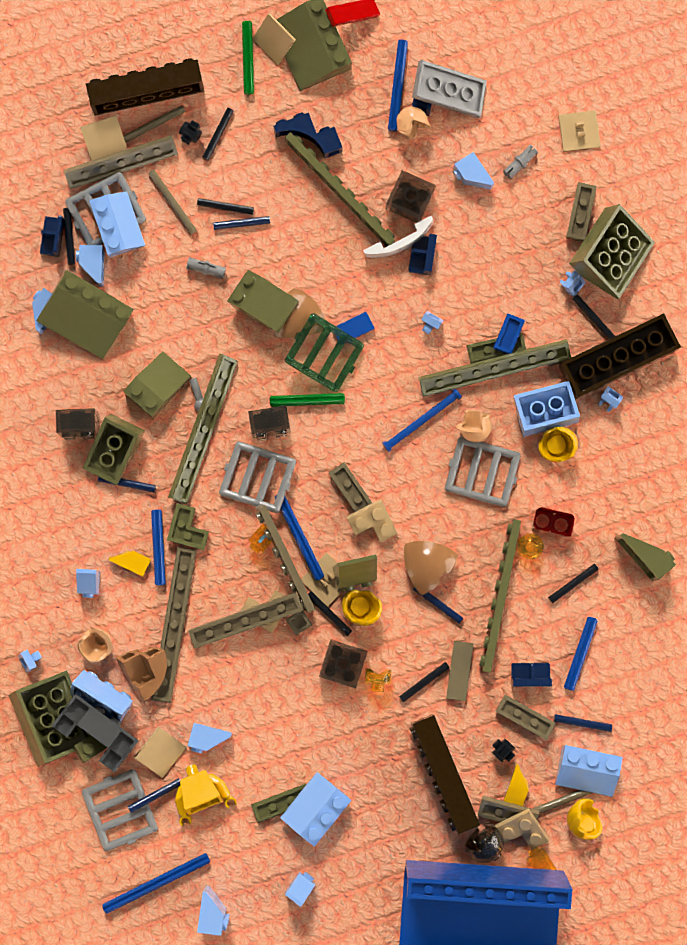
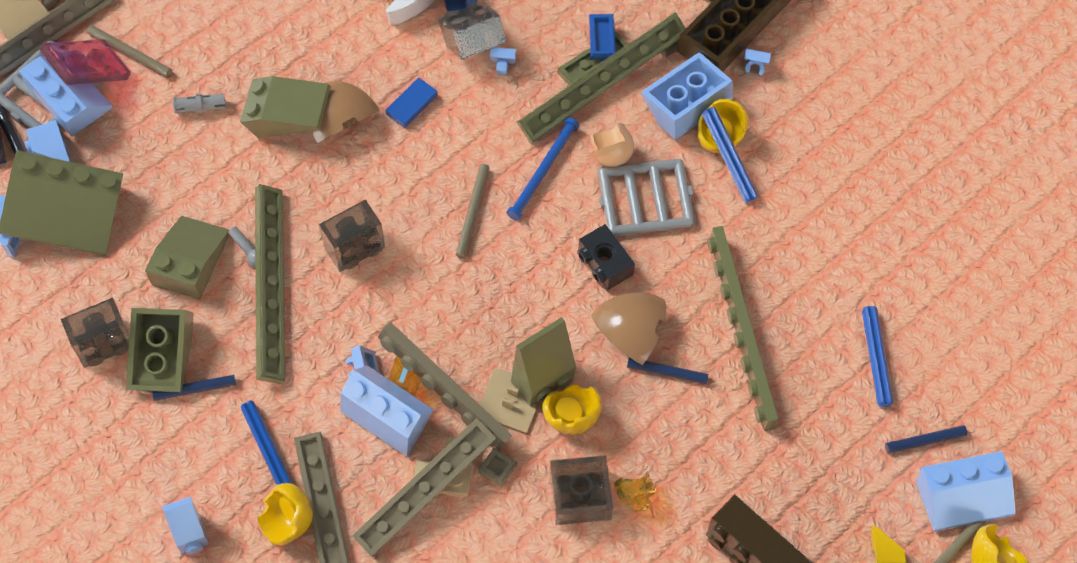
camera: 20 degrees left, 20 degrees down
(132, 561) = (238, 480): yellow slope -> none
(137, 206) = (85, 61): none -> clear pink plate
(151, 600) = (286, 514): none -> yellow piece
(181, 529) = (292, 415): olive plate -> none
(225, 206) = (196, 32): black bar -> none
(241, 222) = (224, 42): dark blue bar -> none
(242, 515) = (362, 357): none -> light blue tile
(242, 555) = (384, 409): none -> light blue slope
(273, 458) = (350, 283): light grey bar -> none
(301, 540) = (451, 361): blue axle -> none
(305, 367) = (371, 160): clear green bar -> none
(310, 399) = (403, 194): green axle -> none
(330, 614) = (538, 441): black bar -> none
(350, 487) = (495, 280): dark tan plate -> none
(360, 431) = (472, 211): none -> dark tan bar
(373, 516) = (538, 295): tan plate -> none
(417, 294) = (472, 30): none -> clear smoke brick
(423, 682) = (697, 474): black bar -> none
(435, 495) = (603, 243): none -> black brick
(459, 670) = (736, 441): dark tan tile -> none
(503, 750) = (845, 513): black gear -> none
(525, 717) = (851, 461): dark tan plate -> none
(530, 546) = (748, 255): clear yellow piece -> none
(530, 674) = (830, 408): dark blue panel -> none
(550, 527) = (765, 204): red piece -> none
(552, 466) = (729, 154): none -> axle
(573, 583) = (823, 278): black bar -> none
(650, 559) = (893, 204): olive slope -> none

